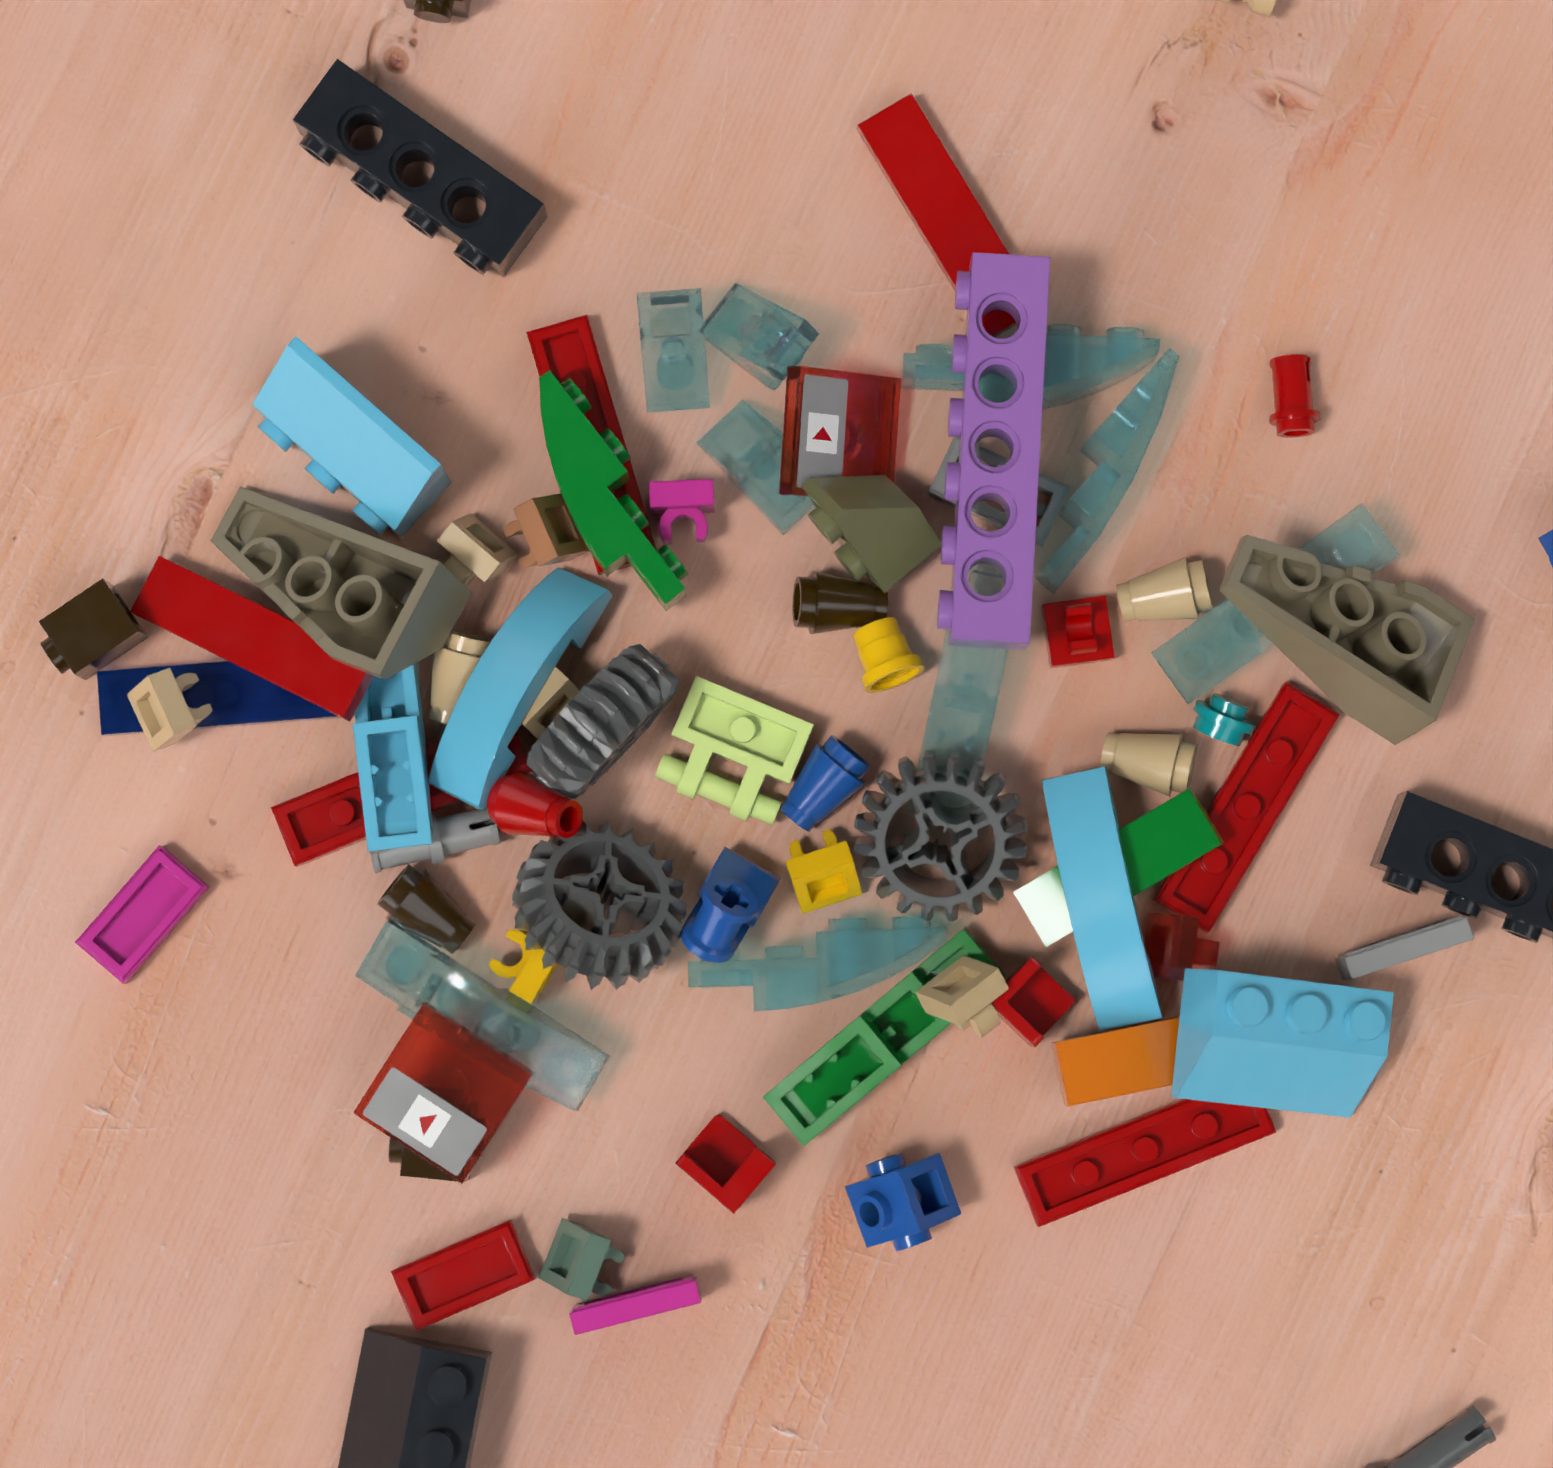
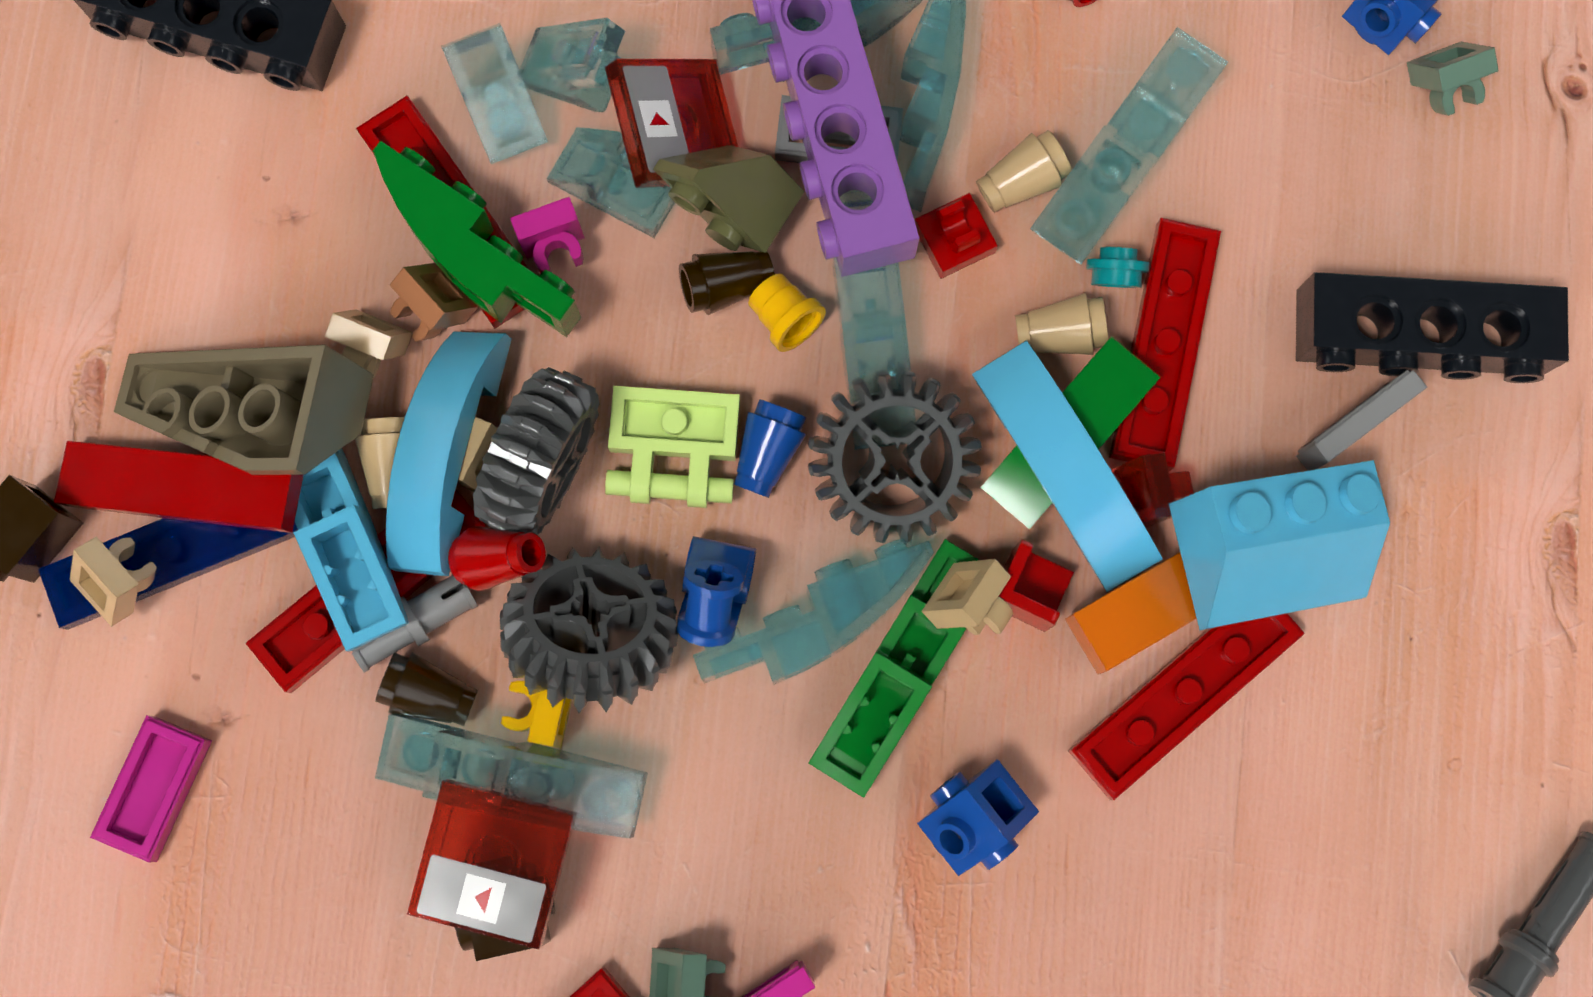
camera: 20 degrees left, 5 degrees down
(348, 441) = (212, 269): medium azure slope -> none
(725, 1163) = (794, 840): red panel -> none
(822, 875) = (795, 531): yellow tile -> none
(1362, 641) = (1232, 154): dark tan wedge -> none

